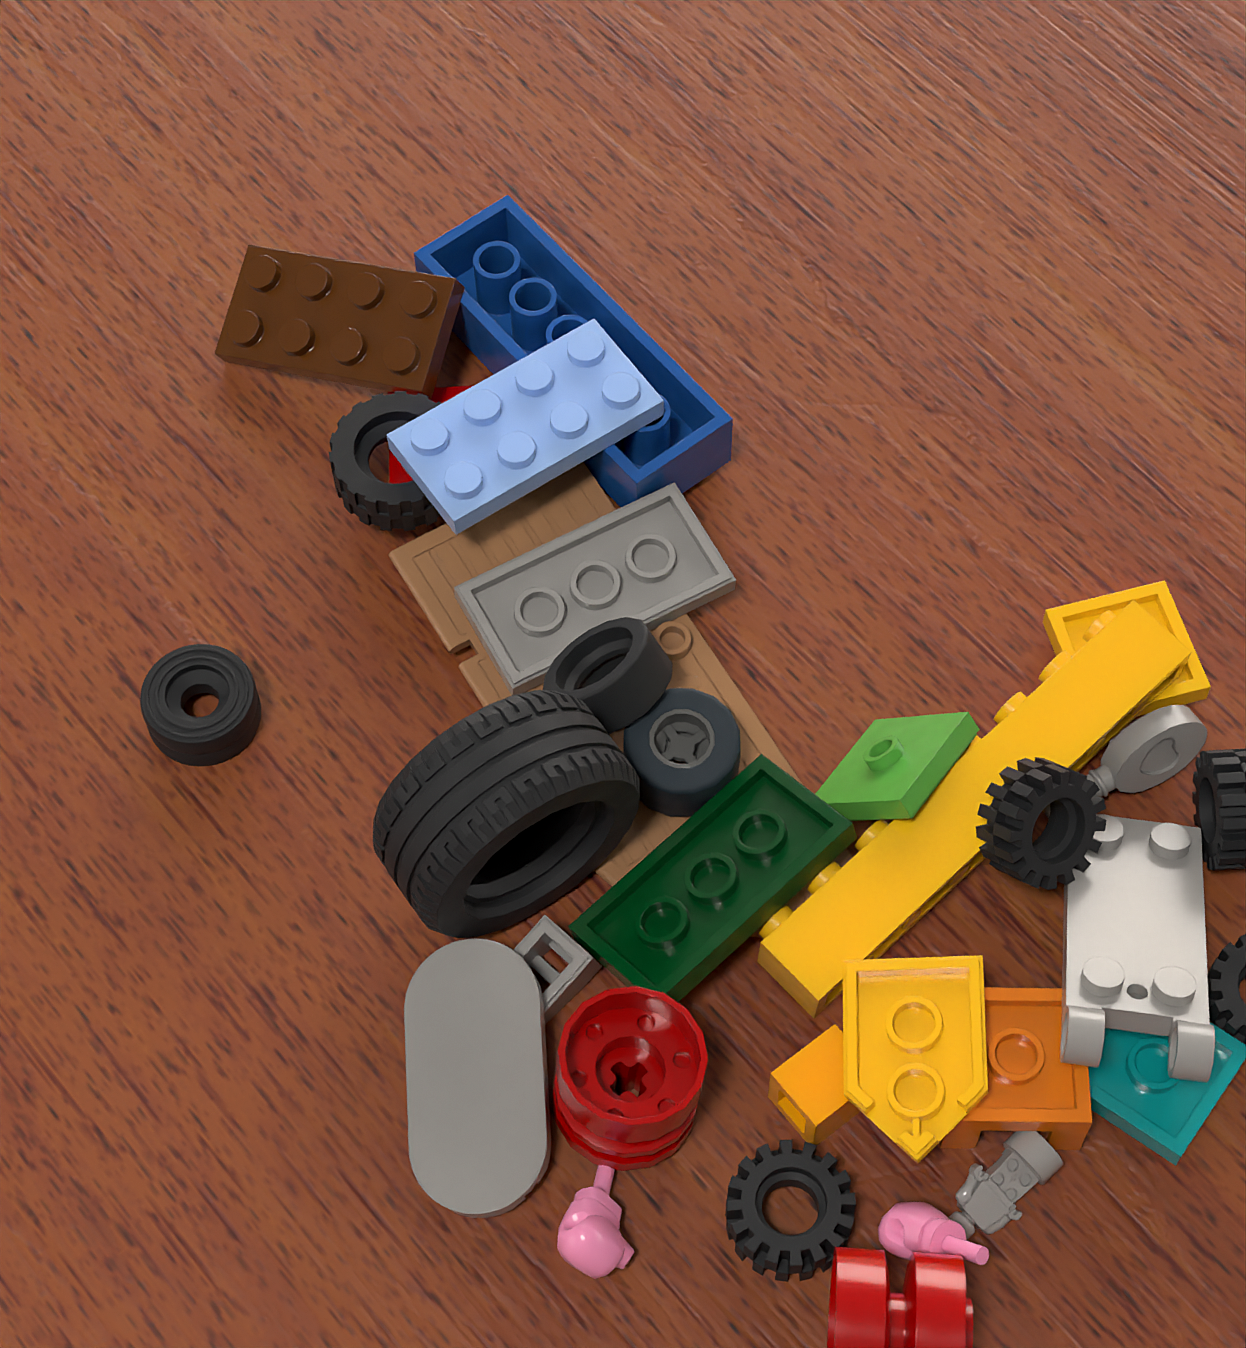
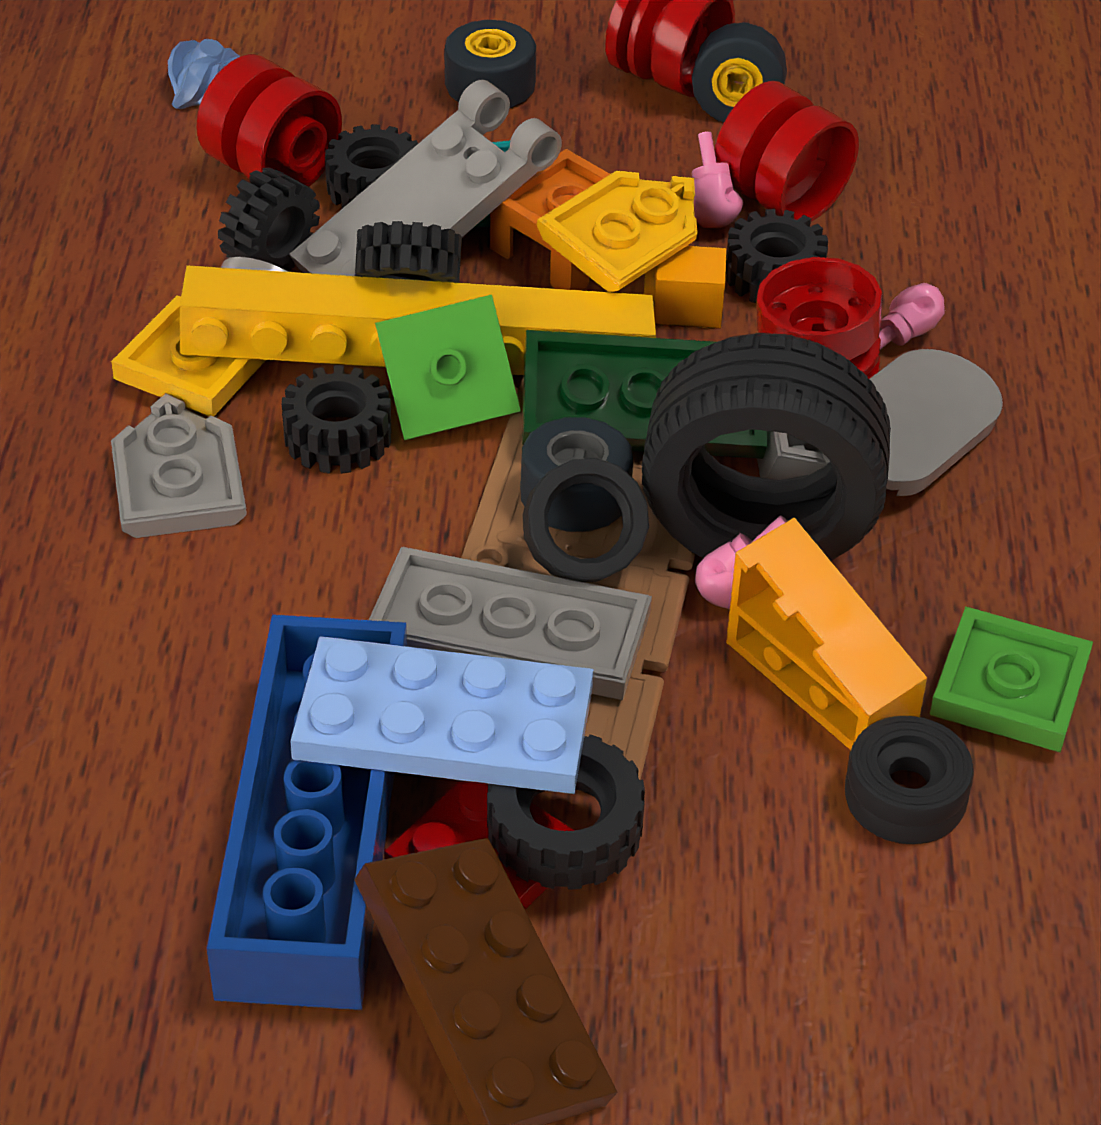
camera: 140 degrees left, 15 degrees down
(188, 860) = (1011, 679): none -> bright green plate
(333, 749) = (817, 636): none -> light orange wedge
(946, 653) = (340, 441): none -> black tyre
(1003, 552) = (177, 472): none -> light grey tile

